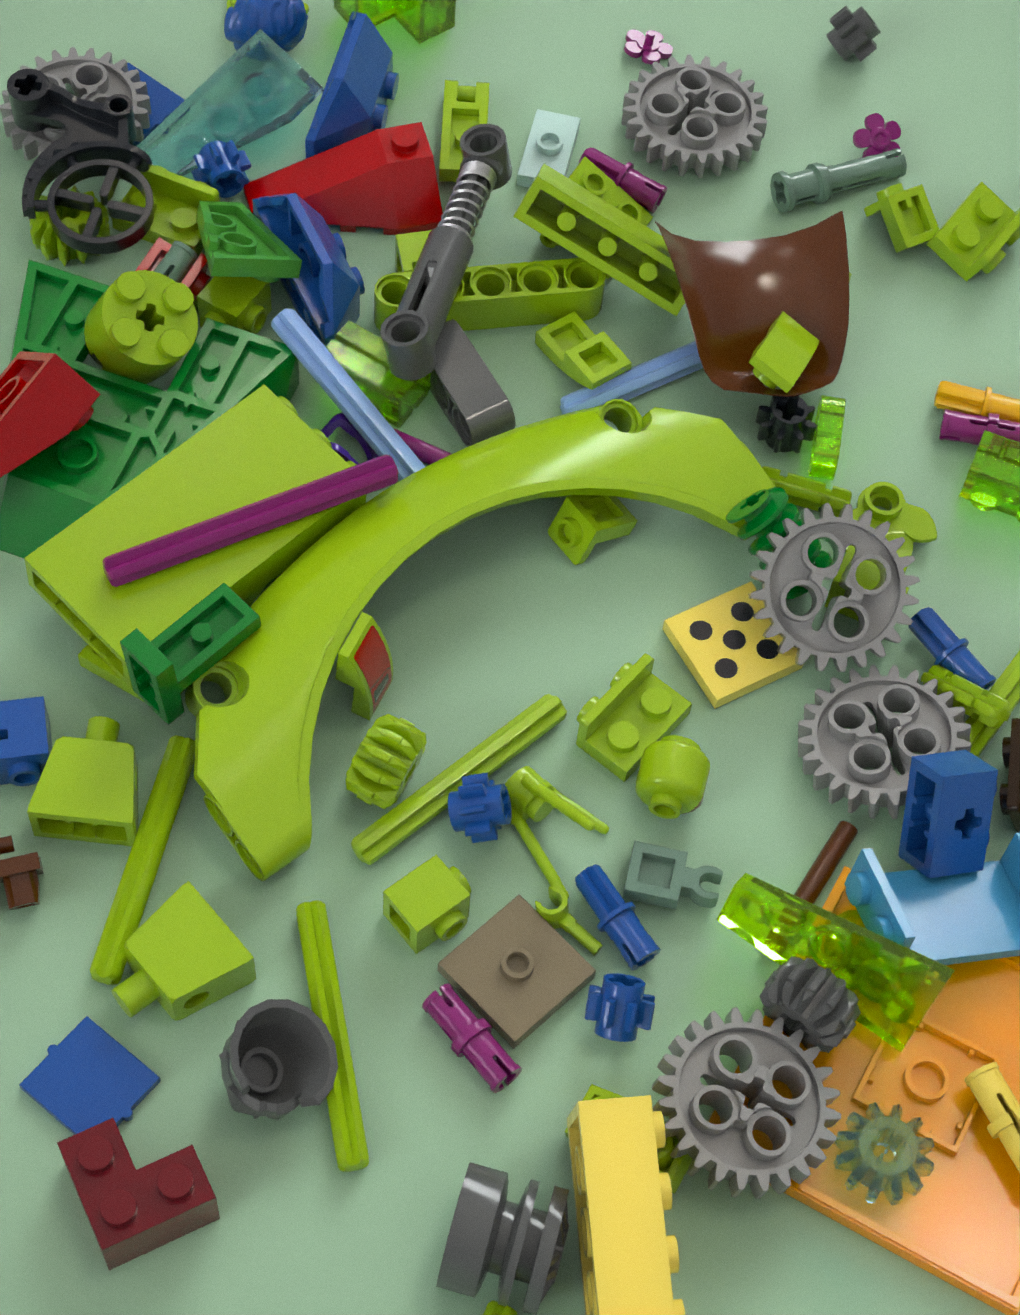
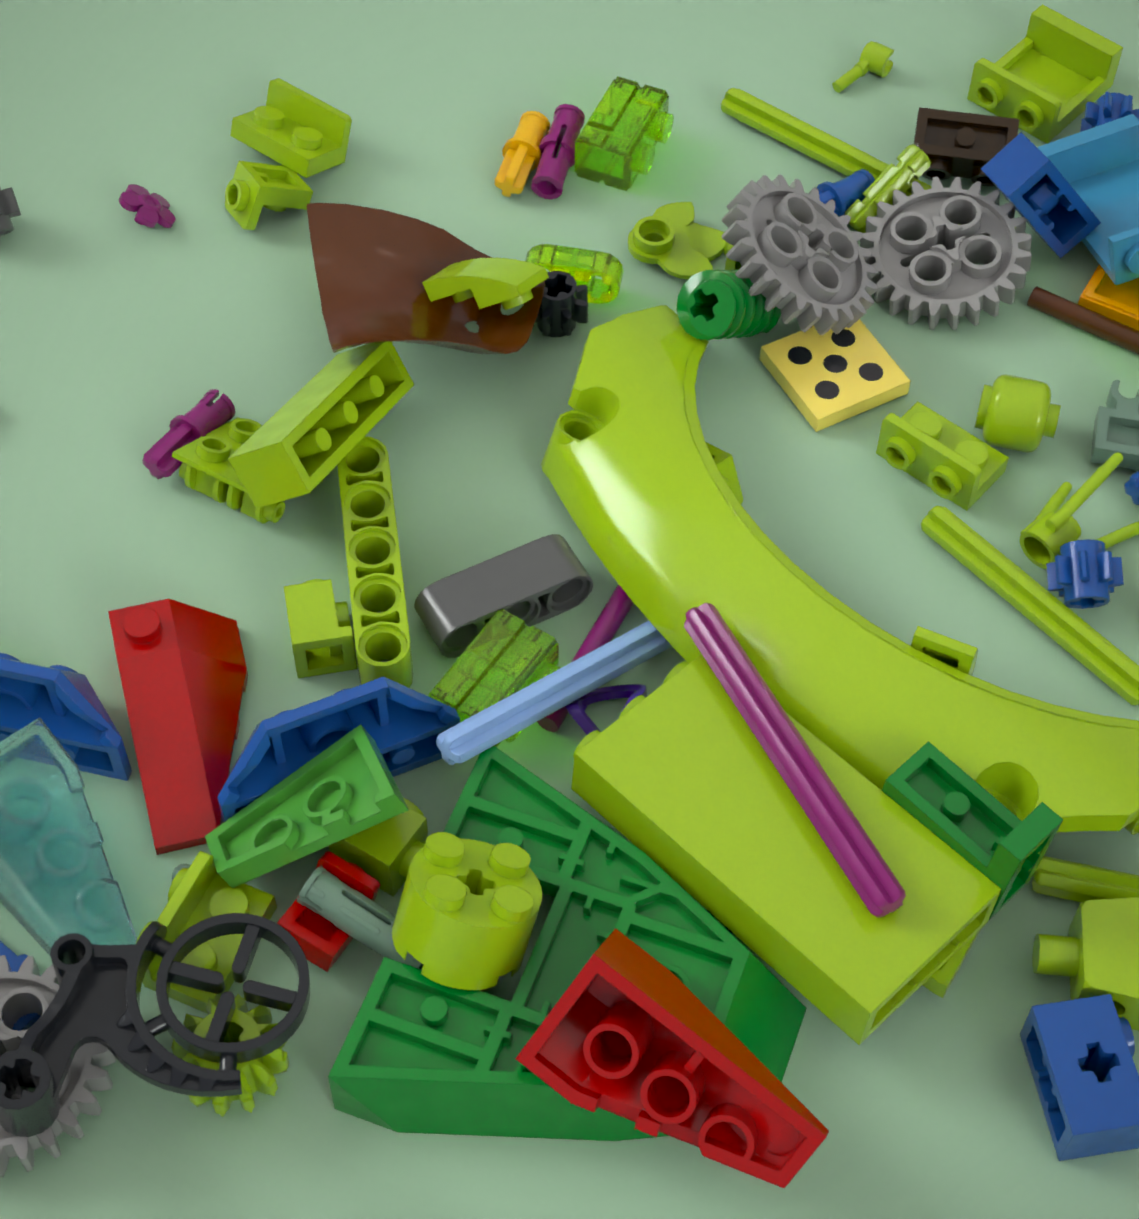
camera: 85 degrees left, 5 degrees down
(222, 167) = (144, 860): blue gear -> none
(385, 761) = (1050, 653): lime gear -> none
(415, 327) = (348, 573): dark grey piece -> none
(461, 110) = (82, 589): lime plate -> none
(550, 143) = (129, 511): light aqua plate -> none
(580, 352) = (467, 474): lime slope -> none
(637, 379) = (484, 426): light blue axle -> none
(694, 116) = (95, 362): light grey gear -> none
(809, 492) = (642, 287): lime axle -> none
(821, 181) = (209, 257): sand green pin -> none

